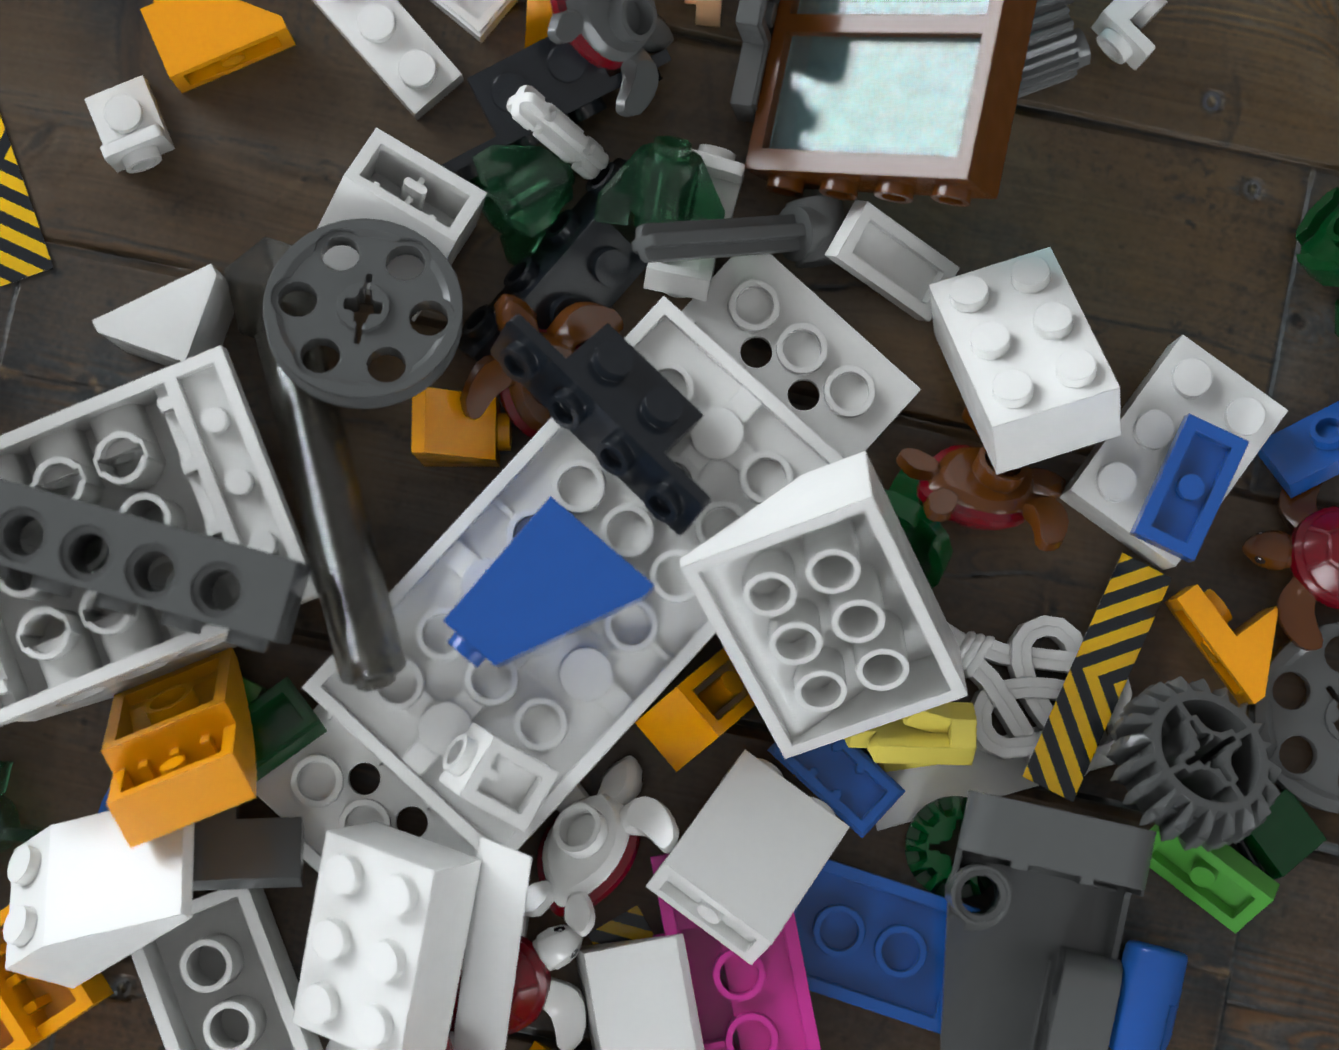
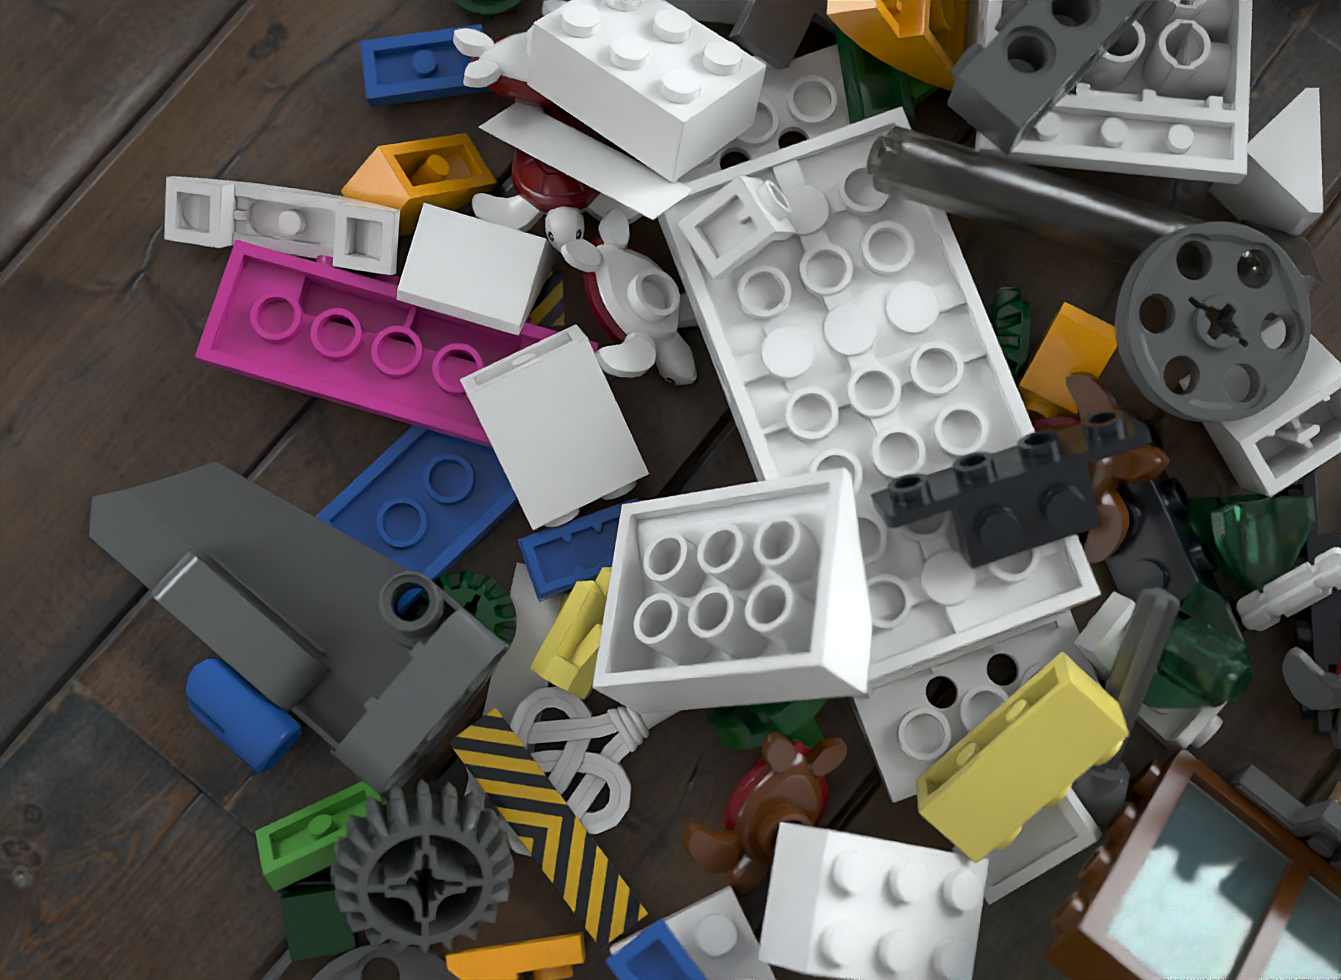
camera: 120 degrees right, 5 degrees down
(449, 491) = (1012, 327): none -> dark green gear
(543, 589) = (885, 344): blue slope -> none
(697, 711) = (702, 444): light orange slope -> none
(835, 297) = (1021, 758): none -> light yellow brick

